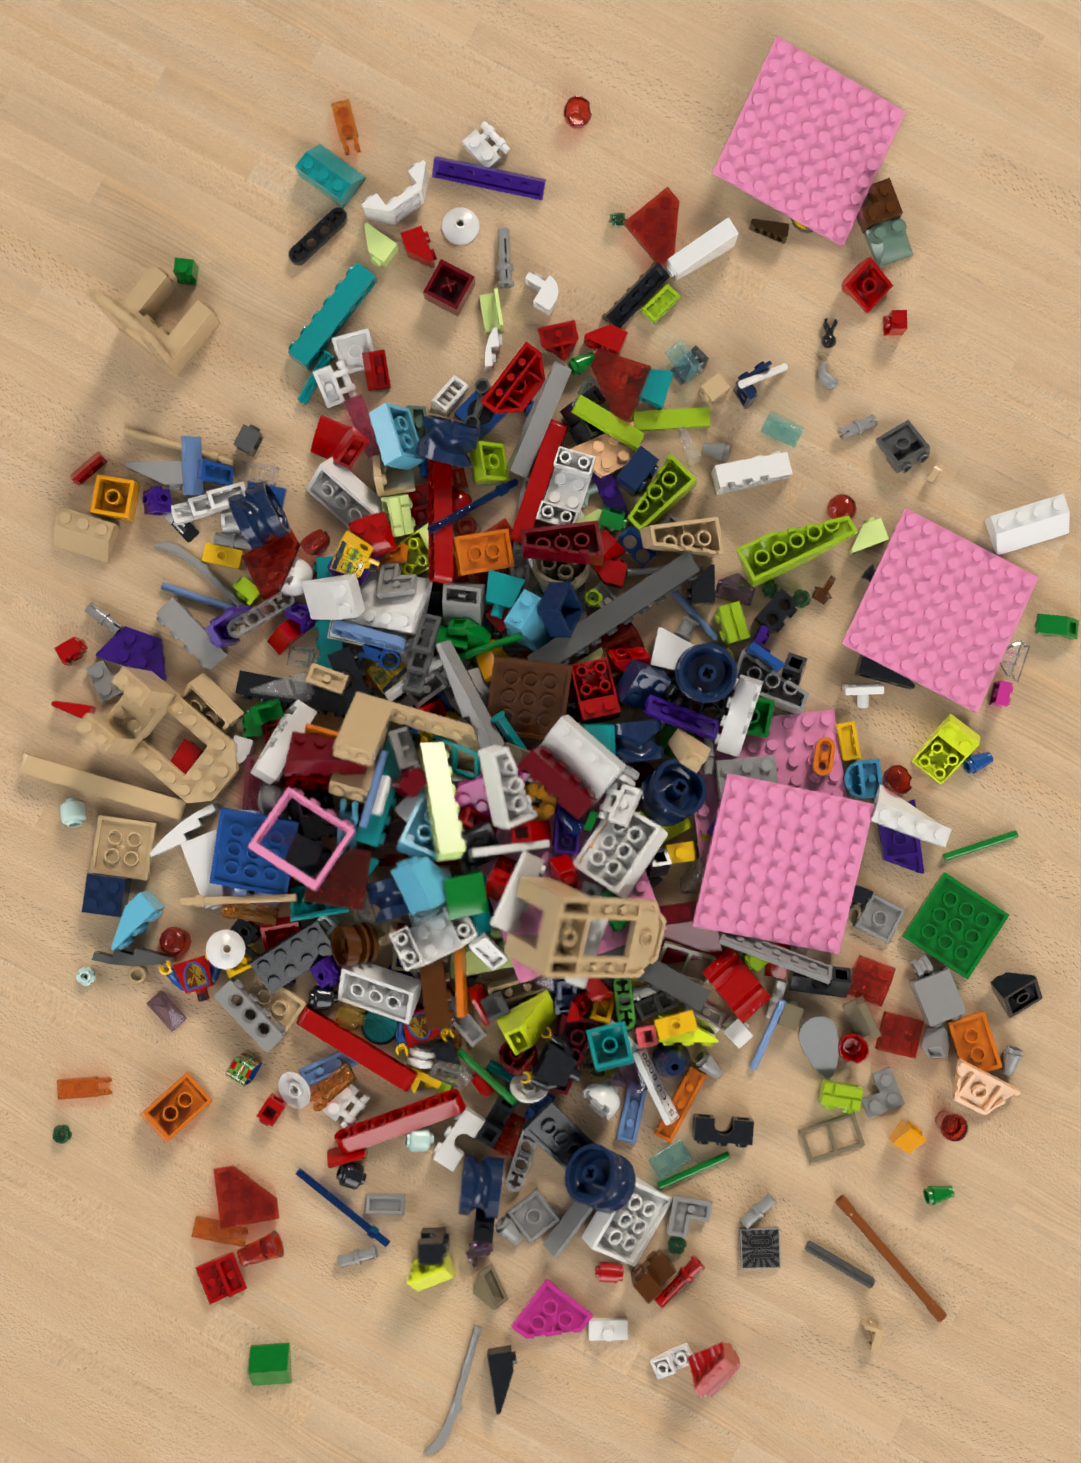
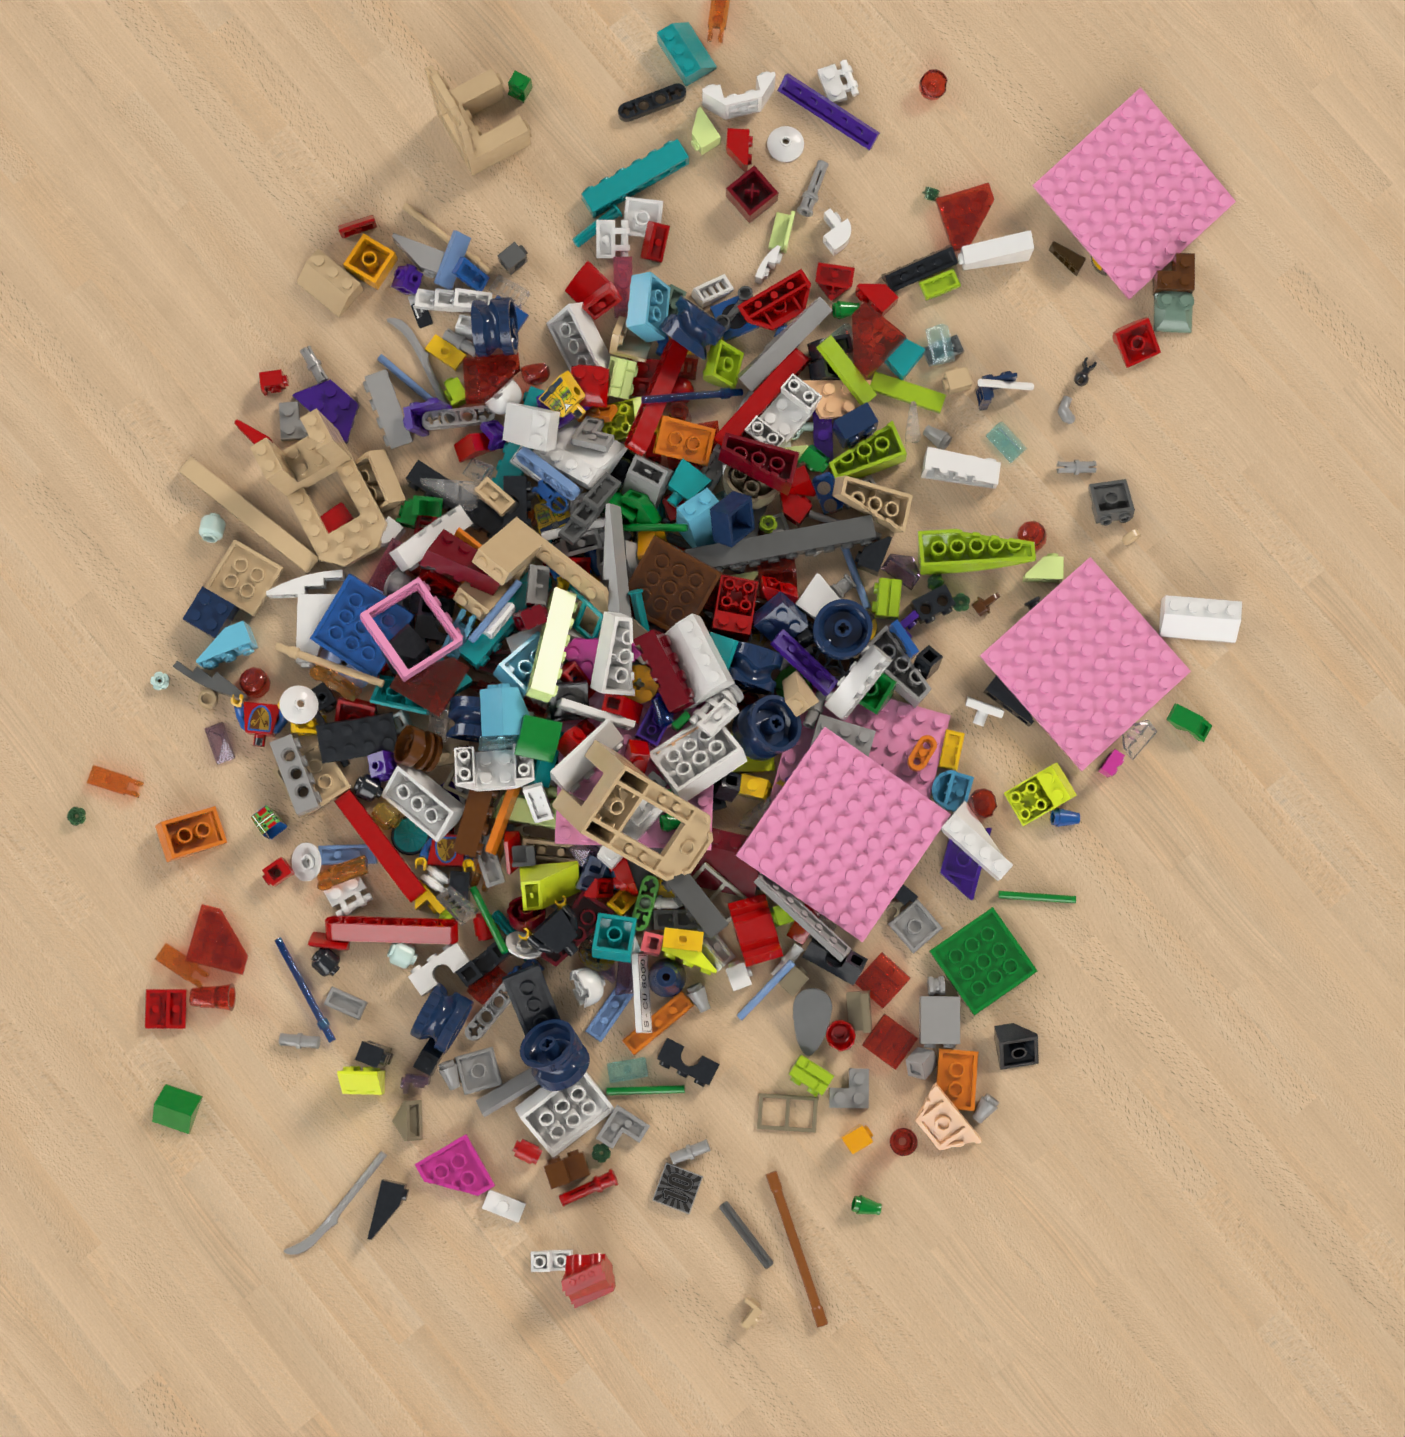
camera: 20 degrees right, 5 degrees down
(895, 323) = (1149, 386): red brick -> none

